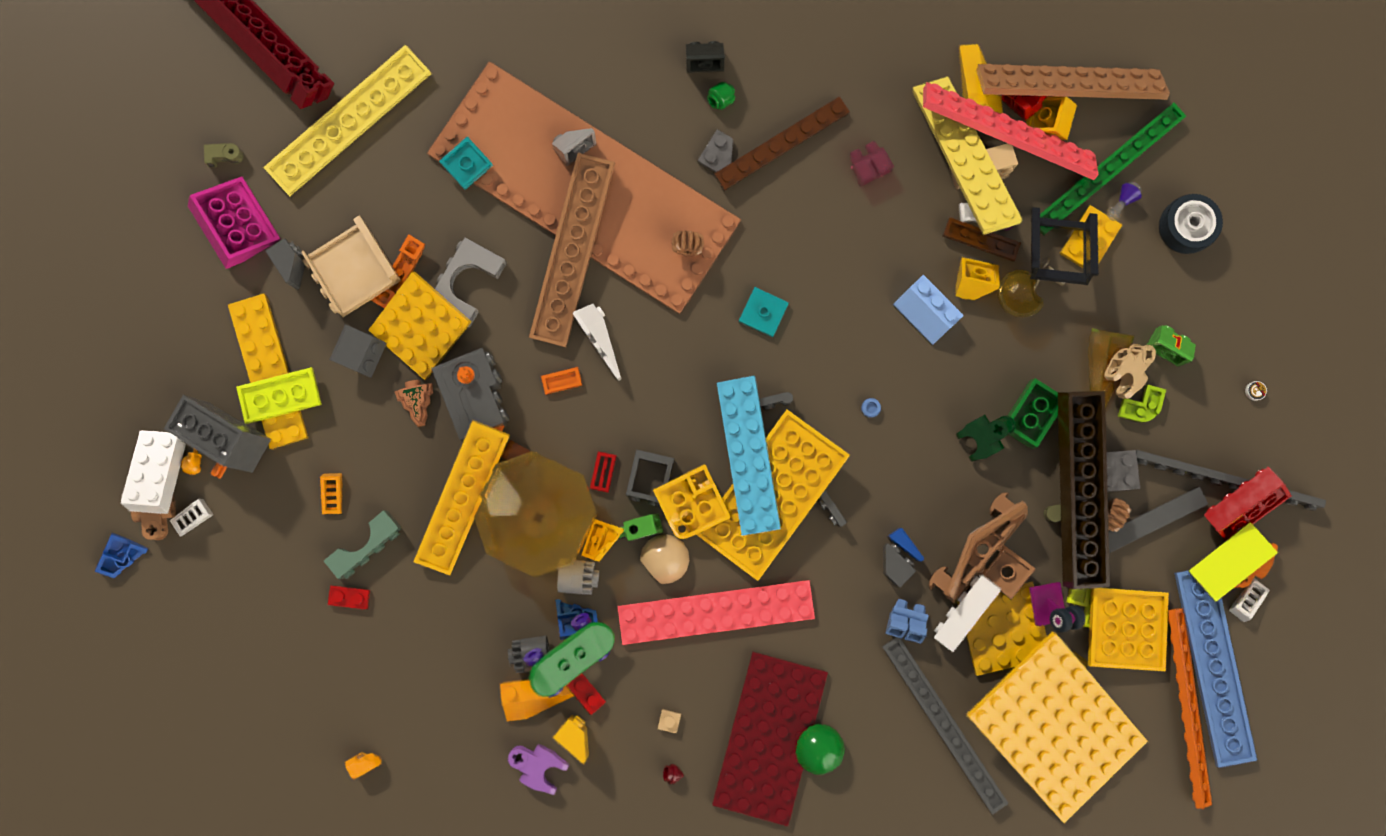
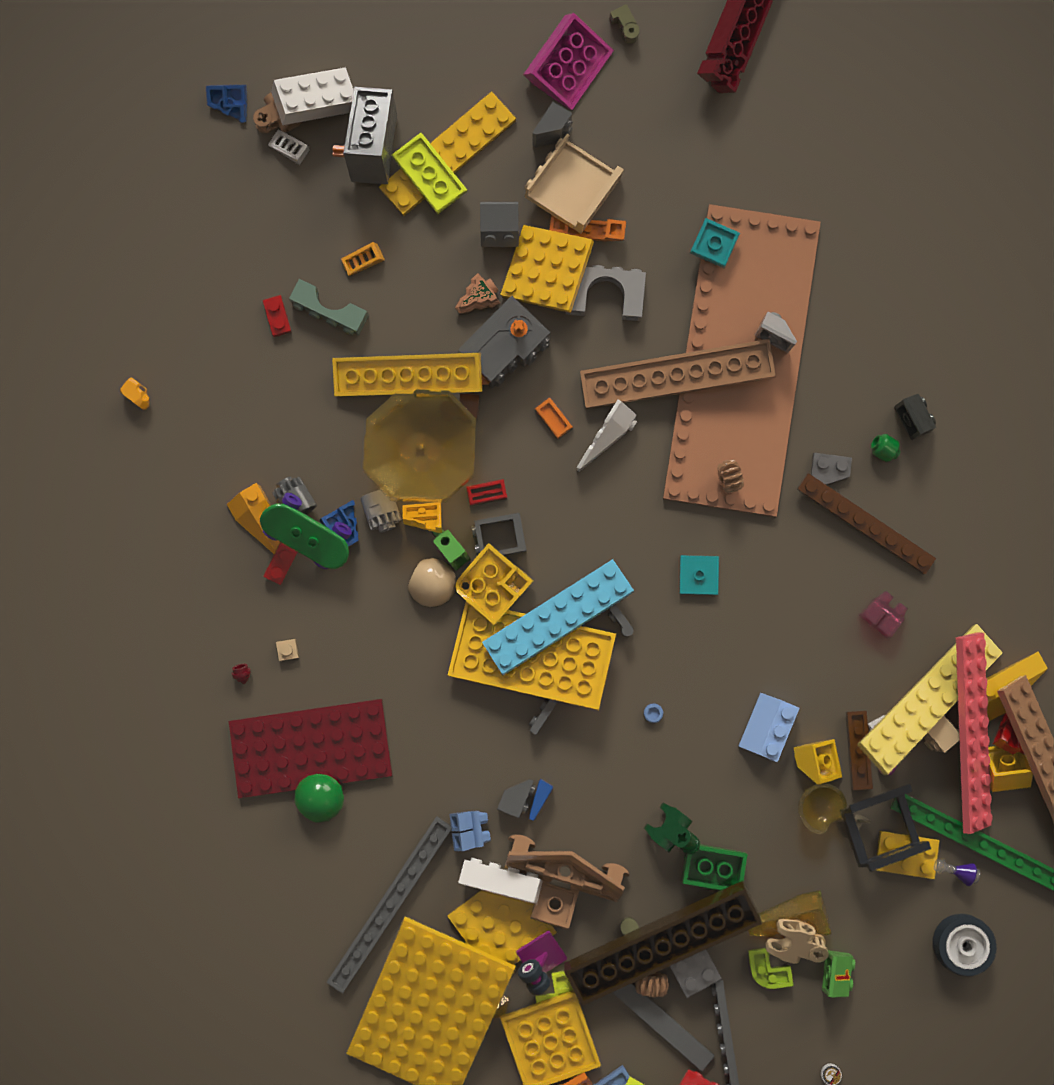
camera: 70 degrees right, 0 degrees up
(191, 463) = (336, 125): light orange piece -> none
(347, 120) = (707, 120): light yellow plate -> none
(535, 765) = (197, 546): medium lavender piece -> none
(574, 737) = (236, 570): yellow slope -> none
(716, 612) = (403, 650): coral plate -> none

